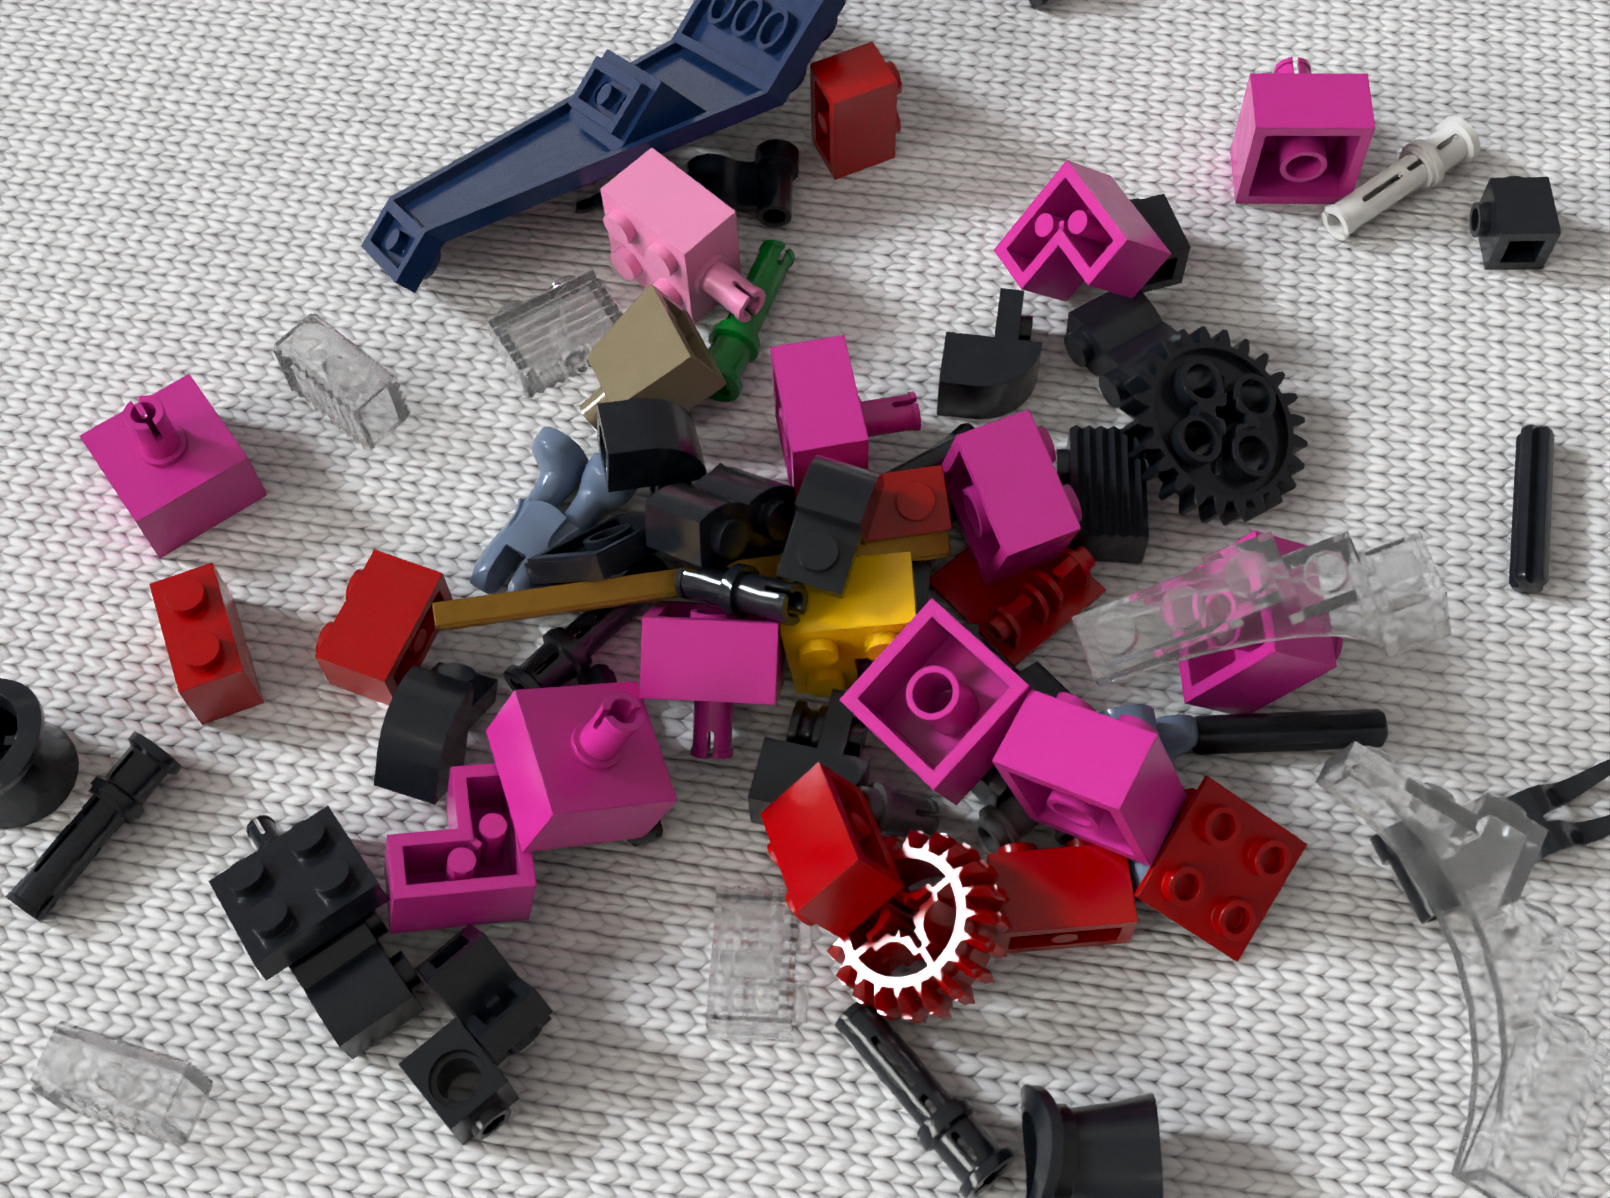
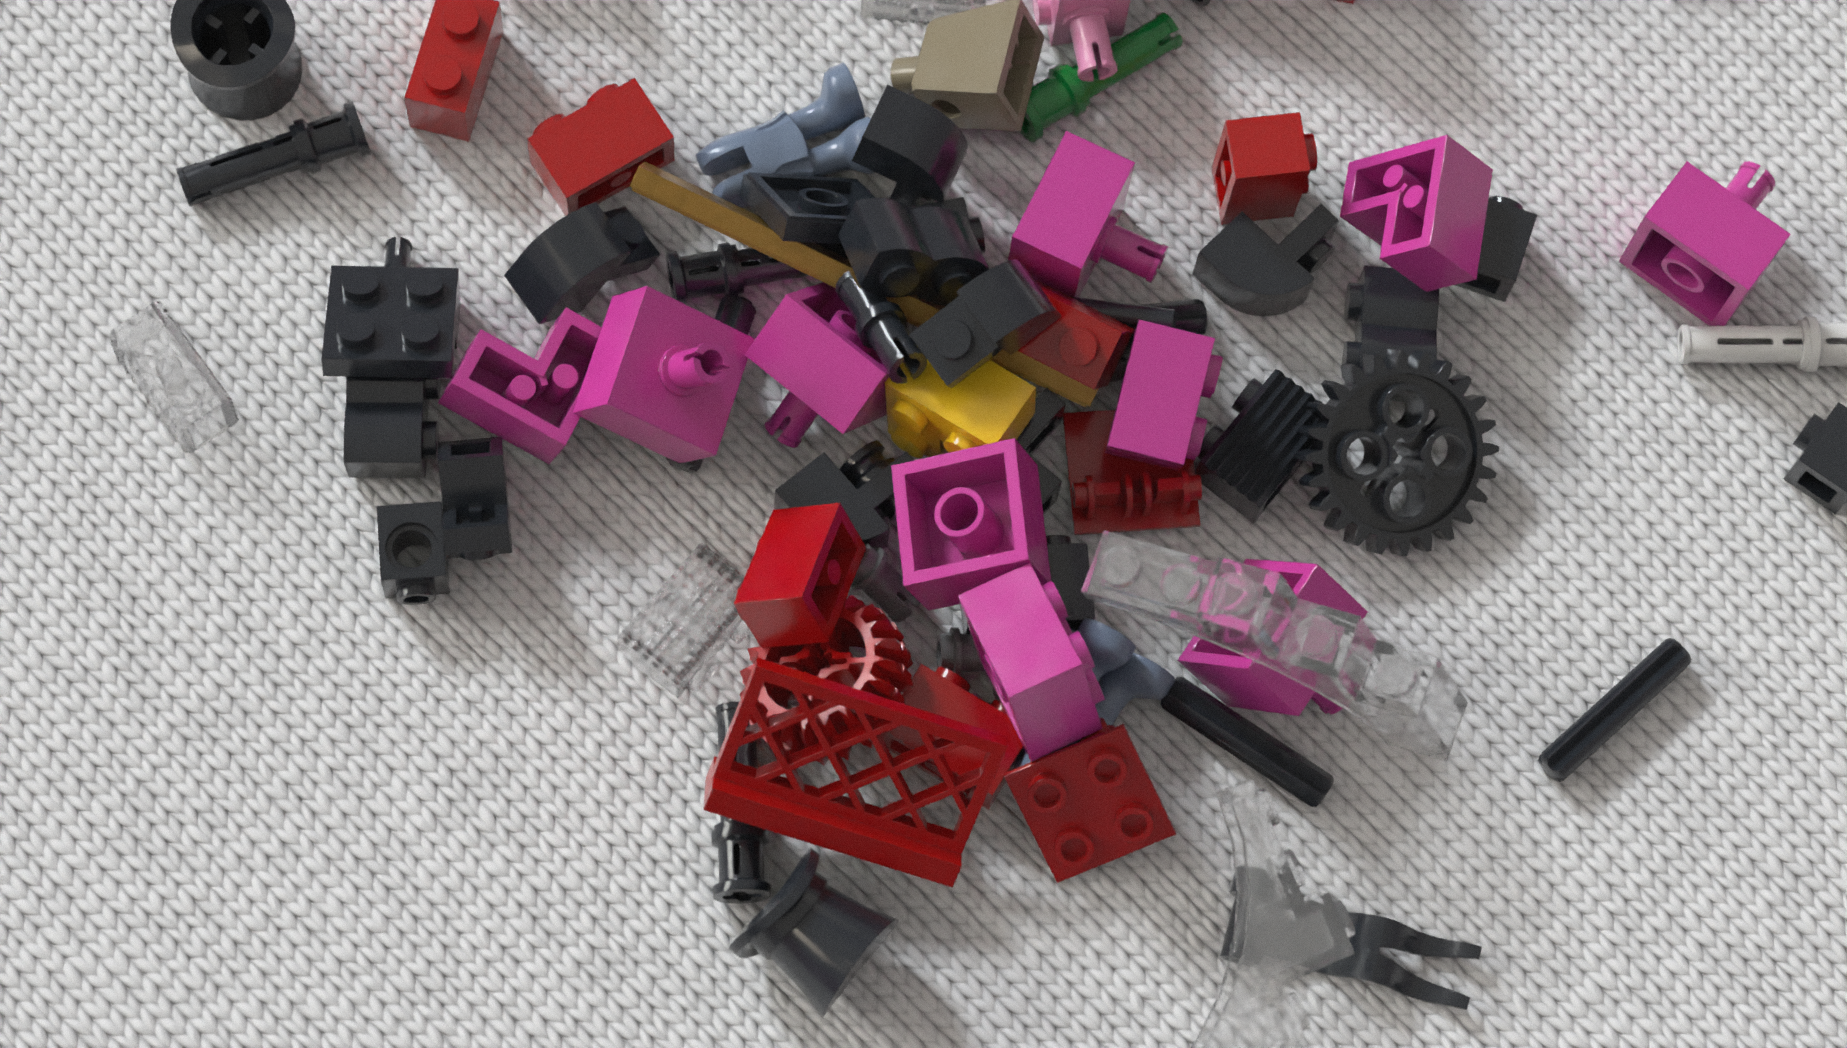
camera: 25 degrees right, 10 degrees up
(934, 290) = (1263, 167): none -> red brick
(1013, 1045) = (823, 813): none -> red fence

